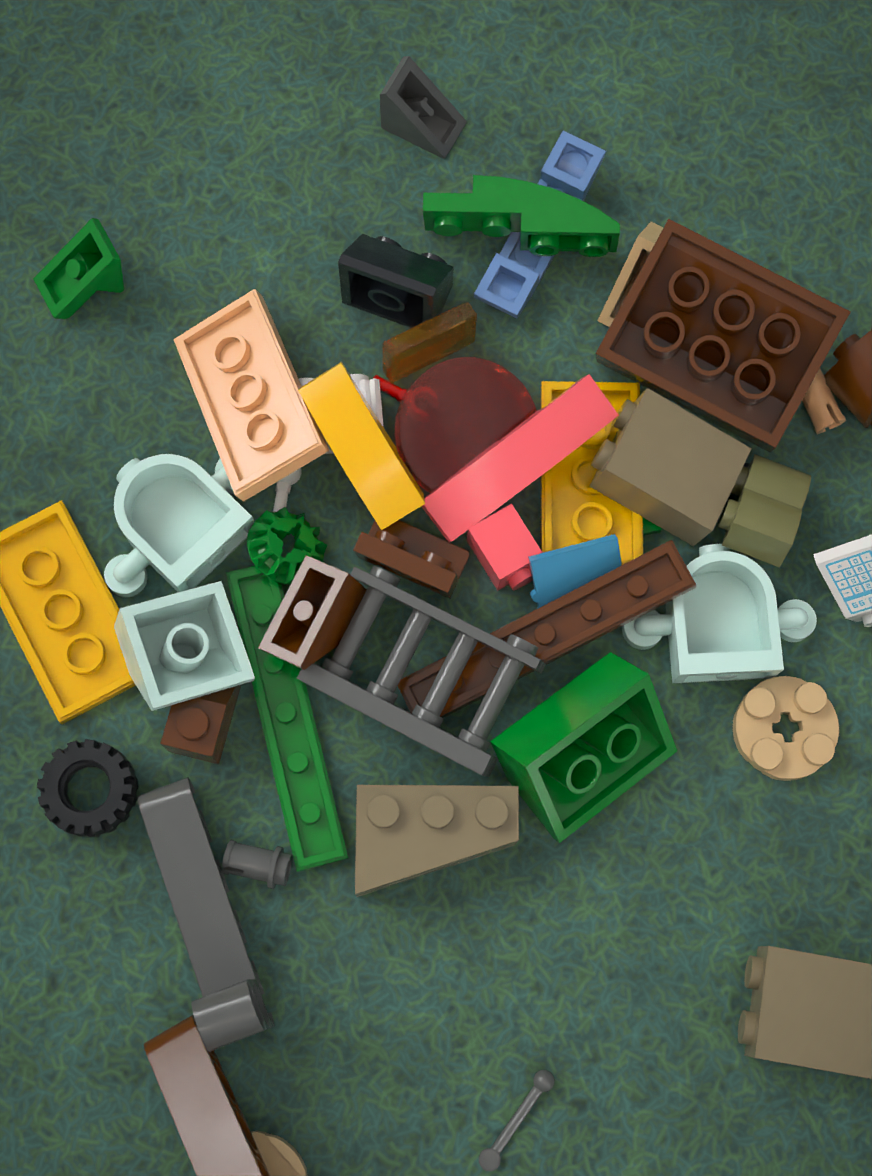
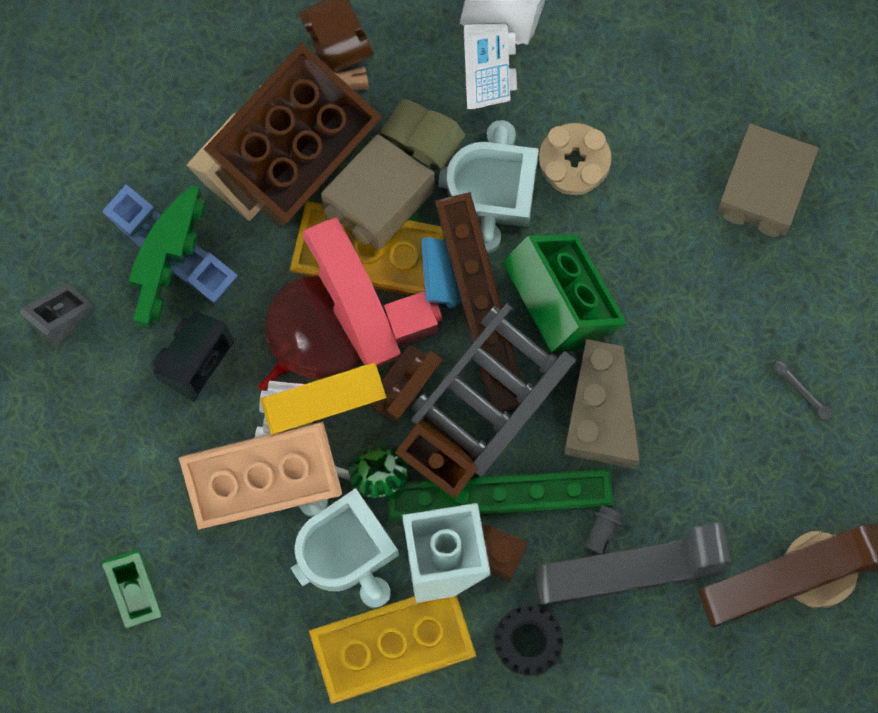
camera: 70 degrees left, 0 degrees up
(429, 342) = (245, 341): clear orange tile -> none

